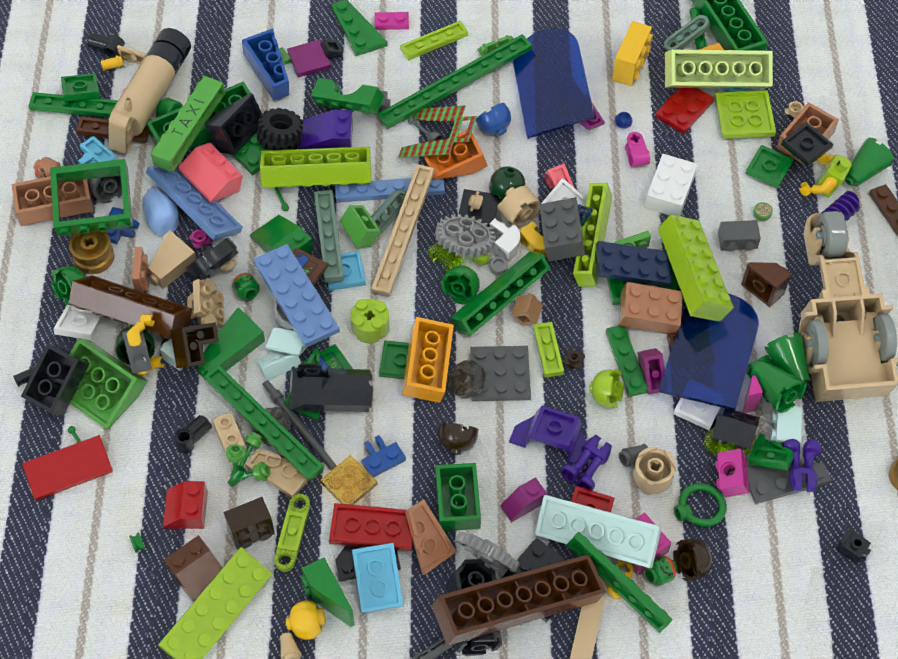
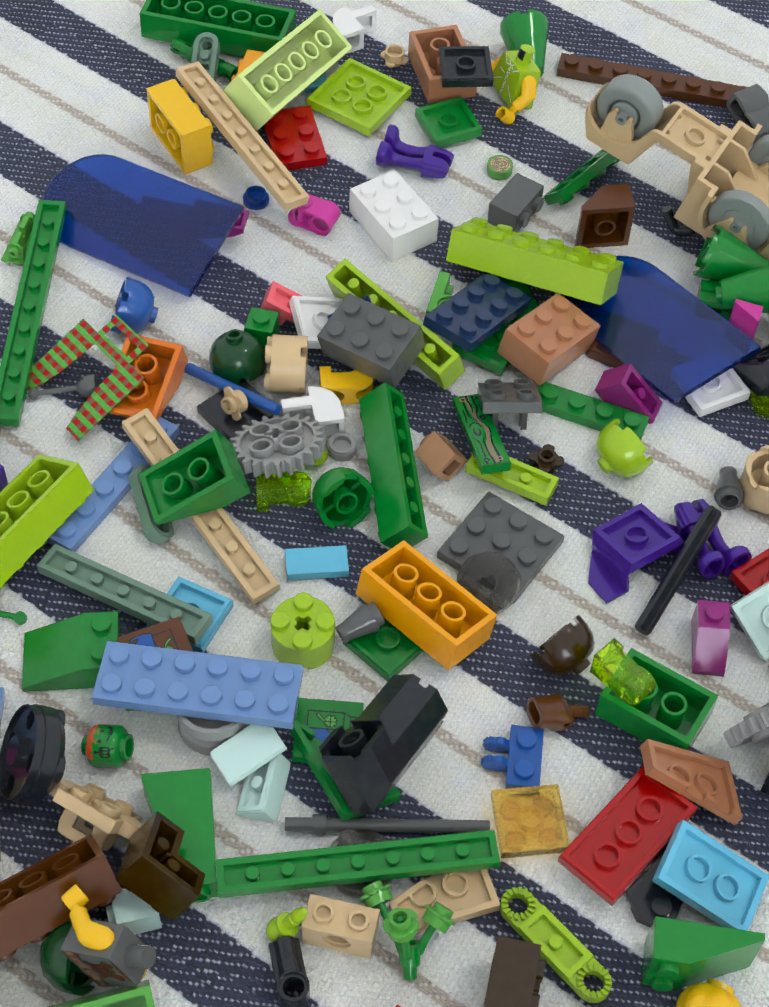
camera: 55 degrees left, 5 degrees down
(211, 413) = (285, 924): none -> lime bar
(360, 226) = (147, 548): bright green brick -> none
(396, 340) = (361, 622): none -> dark grey cone
(409, 216) = (194, 480): none -> green slope
(418, 301) = (316, 562): none -> medium azure tile
(418, 456) = (554, 712): none -> reddish brown piece
(451, 464) = (622, 673): none -> clear neon green leg
(486, 197) = (221, 383): none -> blue bar
(535, 181) = (262, 324): none -> green brick
(552, 459) = (678, 570): none -> black axle
(558, 318) = (481, 435): none -> green tile
(590, 315) = (509, 397): none -> dark grey plate
(644, 82) = (242, 136): none -> tan plate
(729, 177) = (430, 160): none -> dark purple piece
(787, 253) = (580, 178): none -> green plate
(792, 73) = (355, 24): none -> white brick
(846, 204) = (564, 103): dark purple piece -> none

